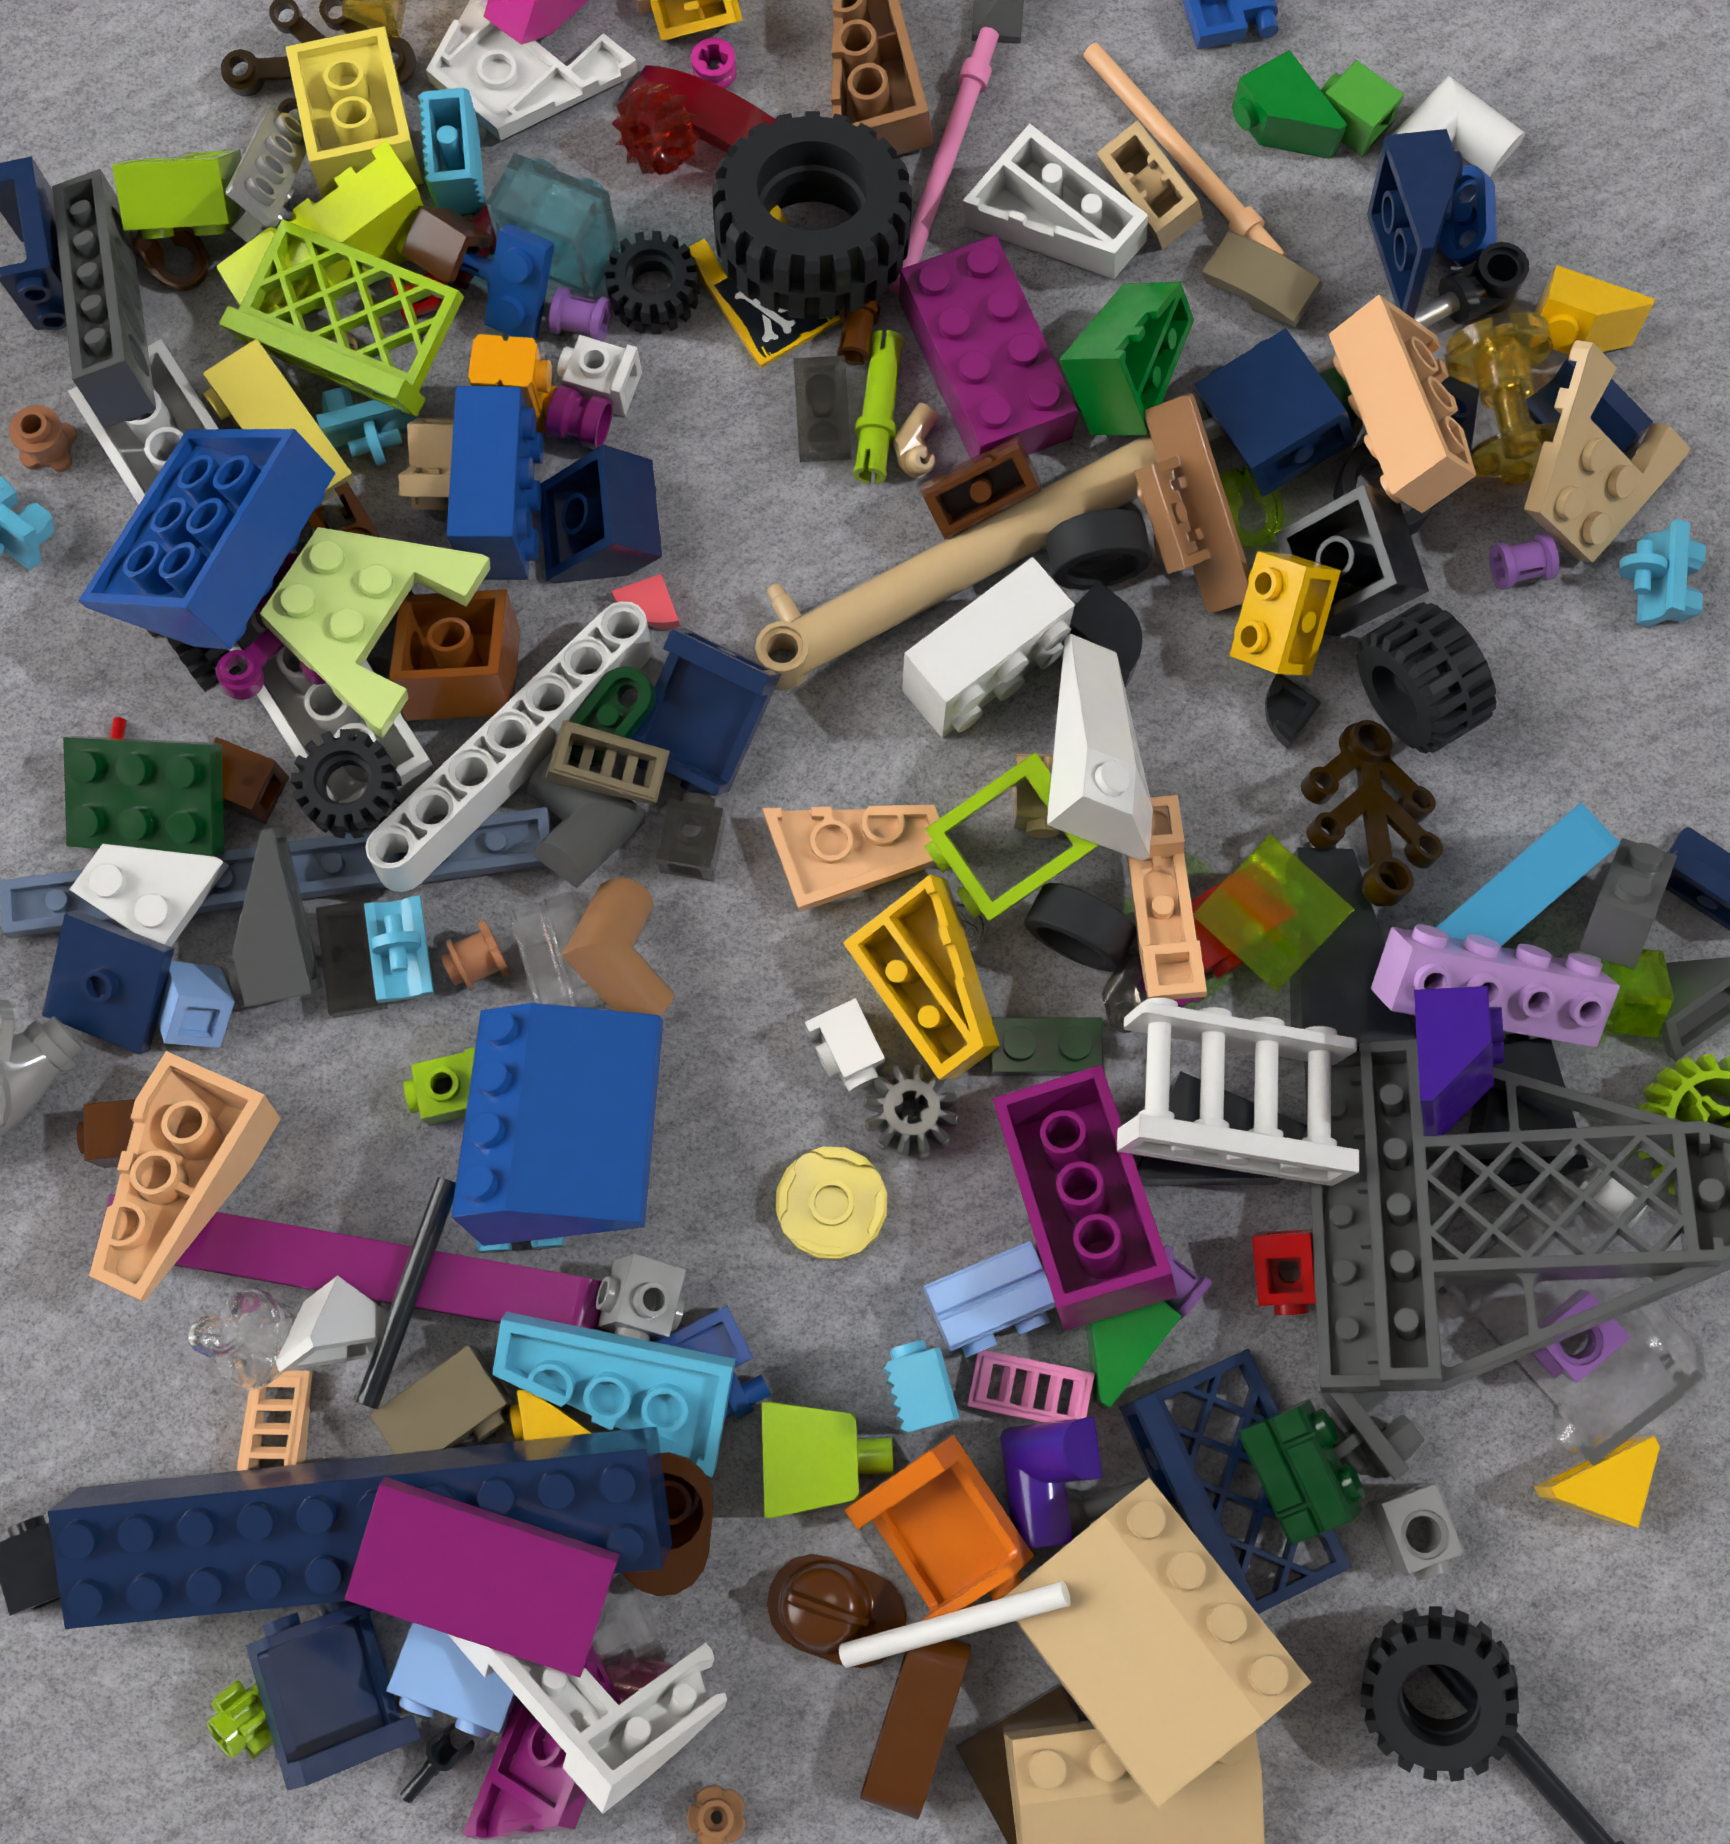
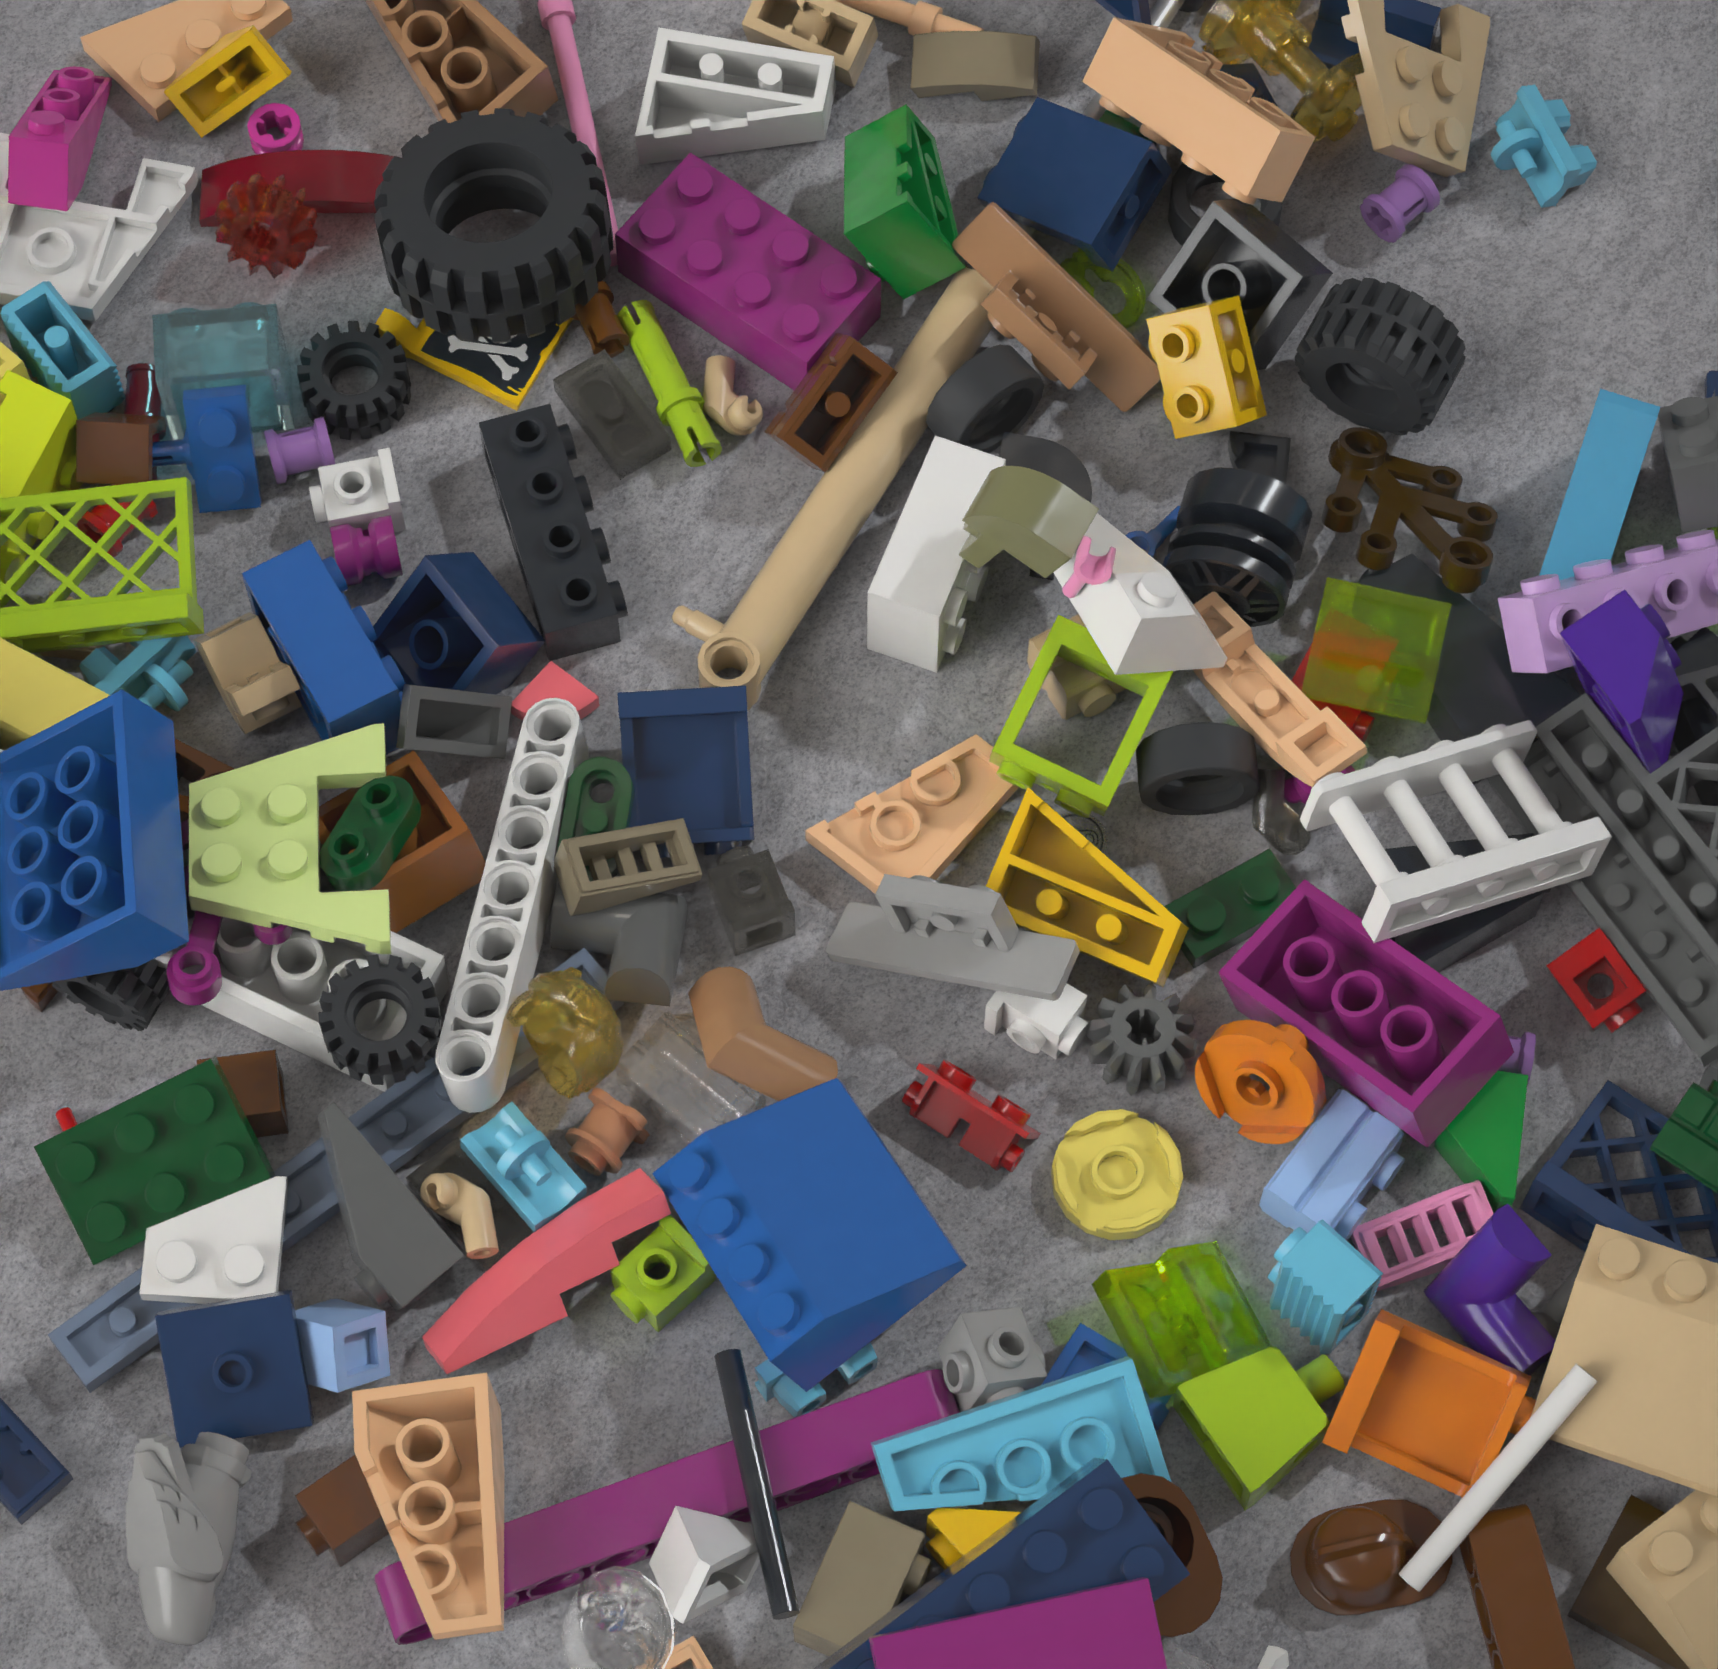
camera: 30 degrees left, 10 degrees down
(338, 956) = (465, 1206): none -> tan arm
(346, 1039) = (526, 1284): none -> coral slope
(427, 638) = (376, 827): none -> dark green plate
(485, 865) = (569, 1030): none -> clear yellow hair
(513, 365) = (279, 526): light orange brick -> none
(554, 582) = (454, 721): none -> dark grey slope
(720, 475) = (551, 531): none -> black brick
(743, 1071) = (993, 1127): none -> red hinge
(806, 1347) = (1180, 1315): none -> clear neon green slope
(811, 960) = (951, 938): none -> light grey bracket
(975, 1199) = (1277, 1057): none -> orange plate
(1048, 665) = (1028, 518): none -> olive brick
(1072, 731) = (1089, 568): none -> bright pink hand
(1165, 725) = (1155, 537): none -> blue hand
(1219, 767) = (1239, 540): none -> black wheel

